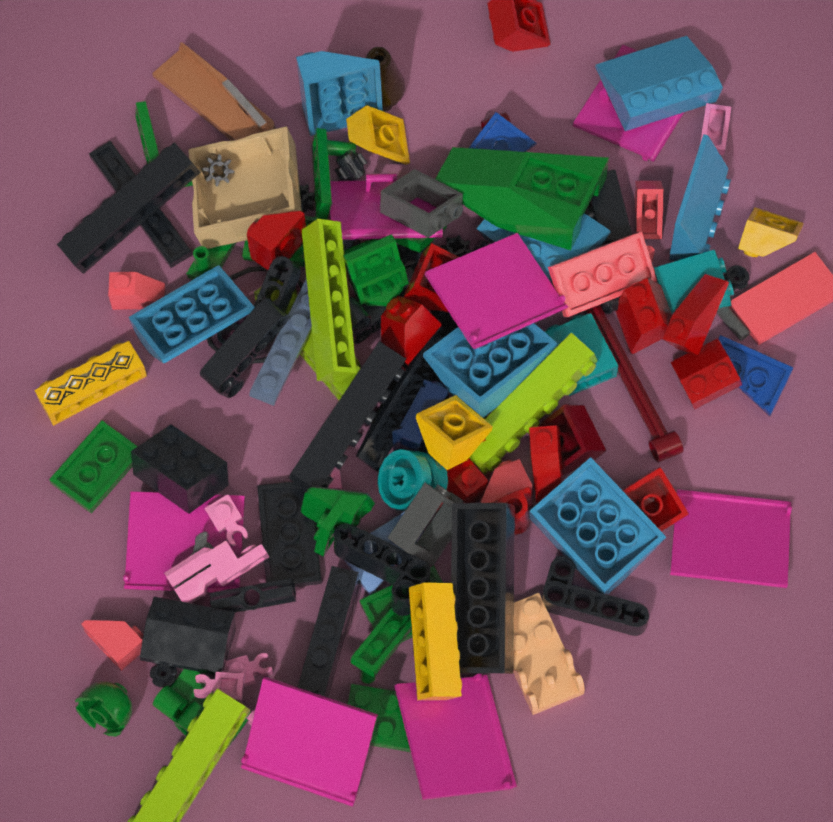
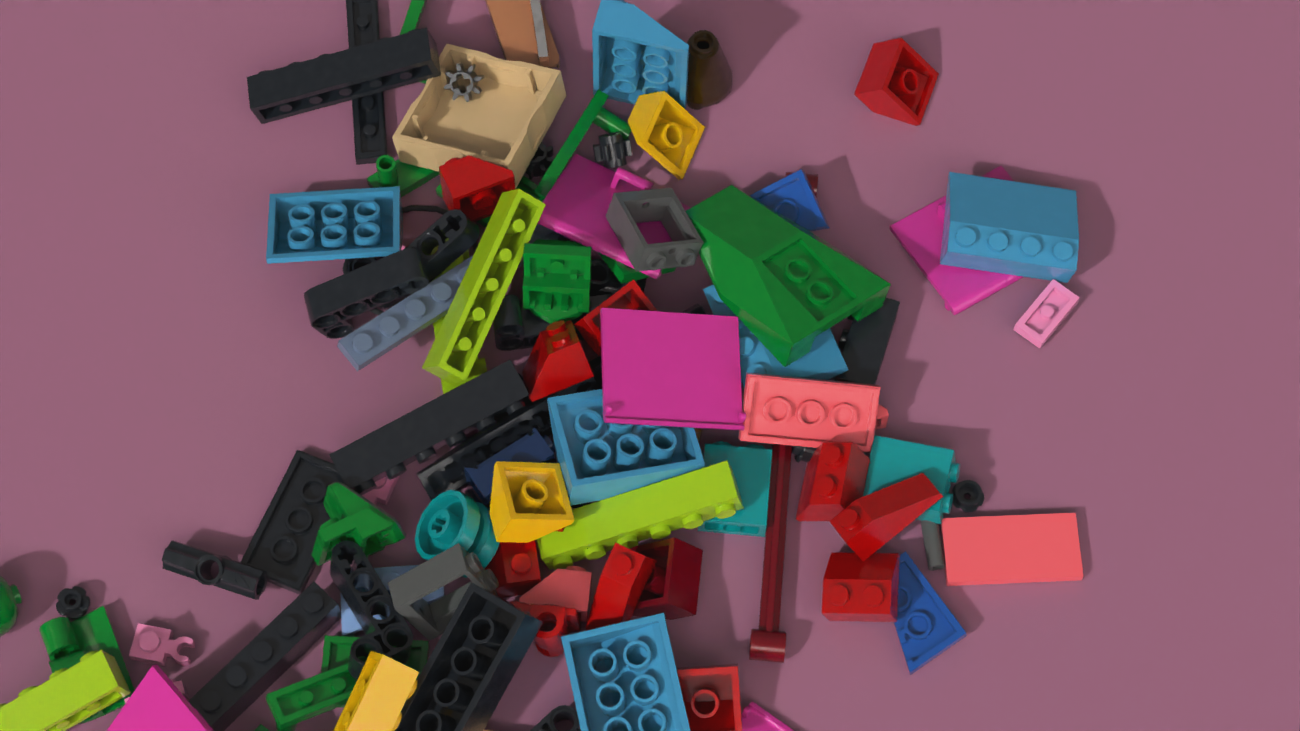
camera: 25 degrees right, 0 degrees up
(90, 382) = (192, 245): yellow brick -> none
(95, 467) = (143, 339): green plate -> none
(116, 640) = (45, 540): coral slope -> none
(133, 290) = (298, 168): coral slope -> none
(165, 536) = (182, 471): dark pink container -> none
(179, 468) = (220, 387): black brick -> none
(187, 636) = (119, 575): black slope -> none
(211, 564) = (188, 511): bright pink plate -> none
(225, 516) = (237, 465): bright pink plate -> none
(229, 683) = (128, 651): bright pink plate -> none
(457, 244) = (671, 297): black gear -> none
(649, 208) = (913, 366): coral slope -> none
(700, 203) = (970, 387): dark azure slope -> none
(767, 233) = (1033, 461): yellow slope -> none

